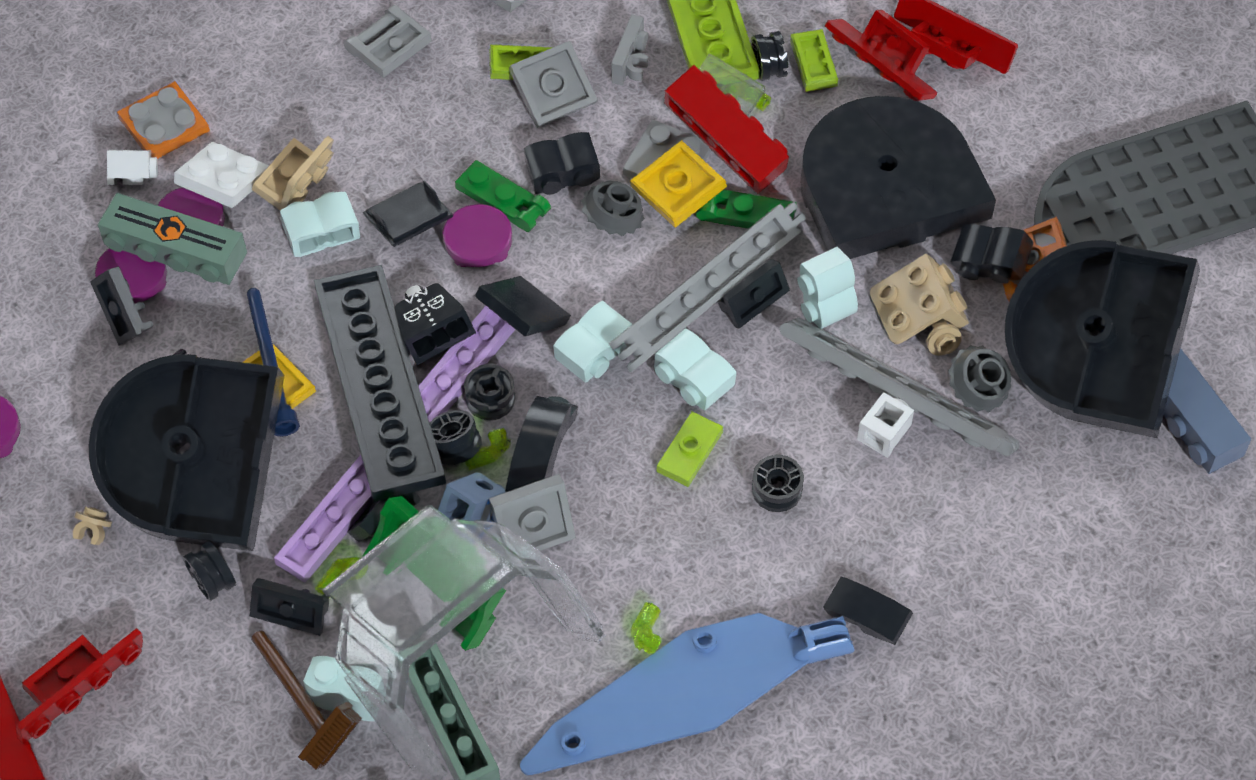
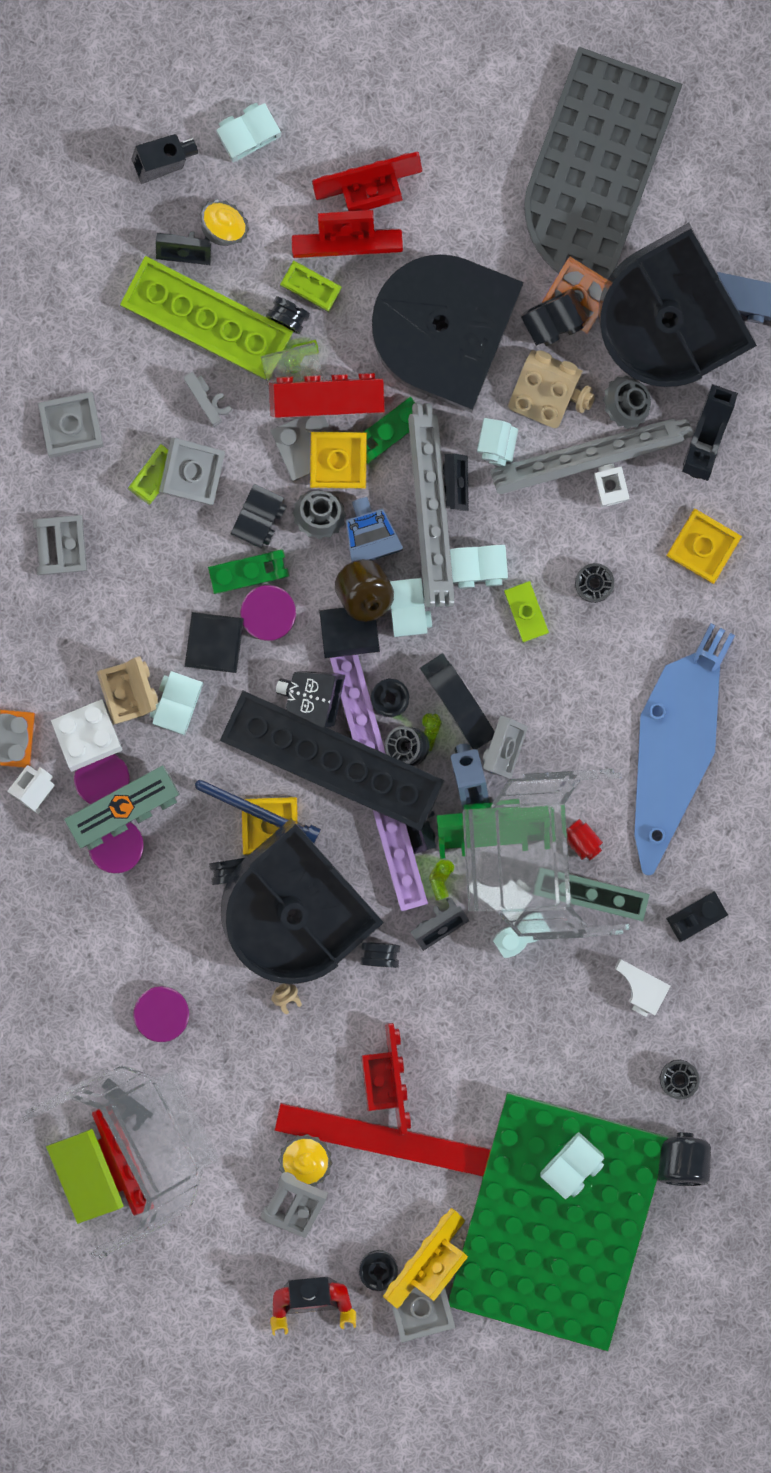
camera: 45 degrees left, 30 degrees up
(117, 304) = (144, 873): black plate -> none
(329, 731) = (543, 966): reddish brown piece -> none
(502, 673) = (583, 840): none -> red brick
(573, 283) = (364, 590): none -> dark brown head
(632, 261) = (370, 533): none -> sand blue torso
(642, 629) = (621, 740): clear neon green arm -> none
(868, 609) = (716, 604): black slope -> none
(914, 557) = (703, 546): none -> yellow tile
(1030, 468) = (709, 432): none -> black arch

